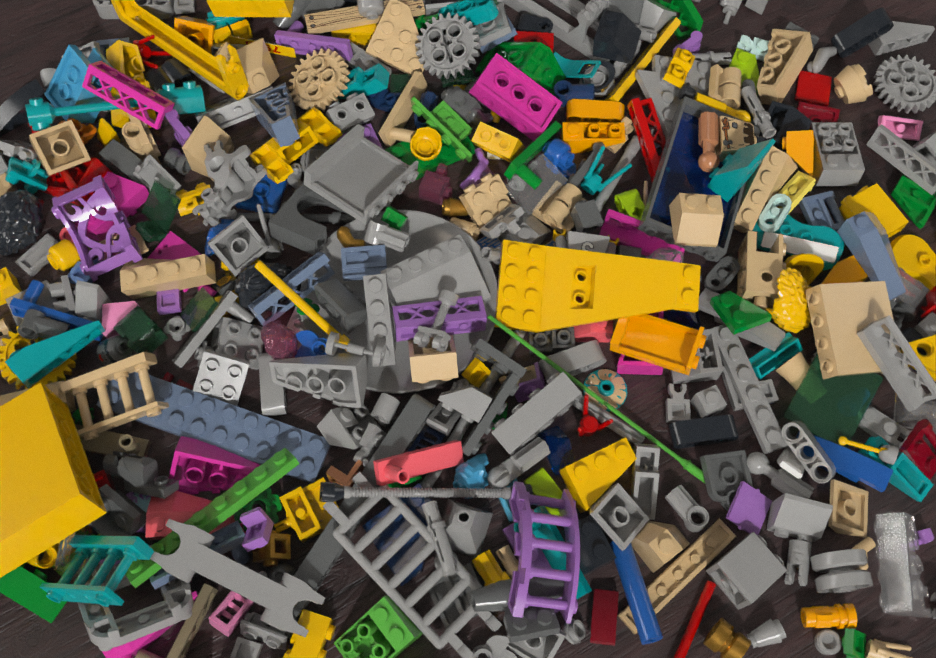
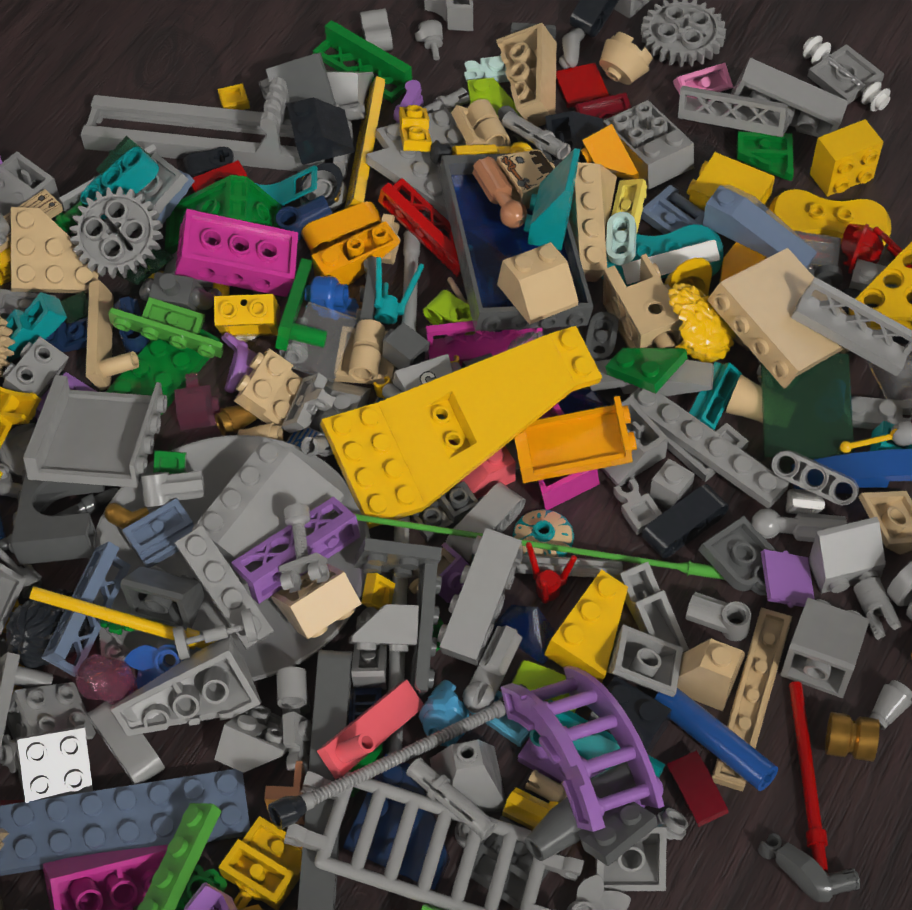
camera: 25 degrees left, 10 degrees down
(426, 143) = (156, 358): yellow hair -> none

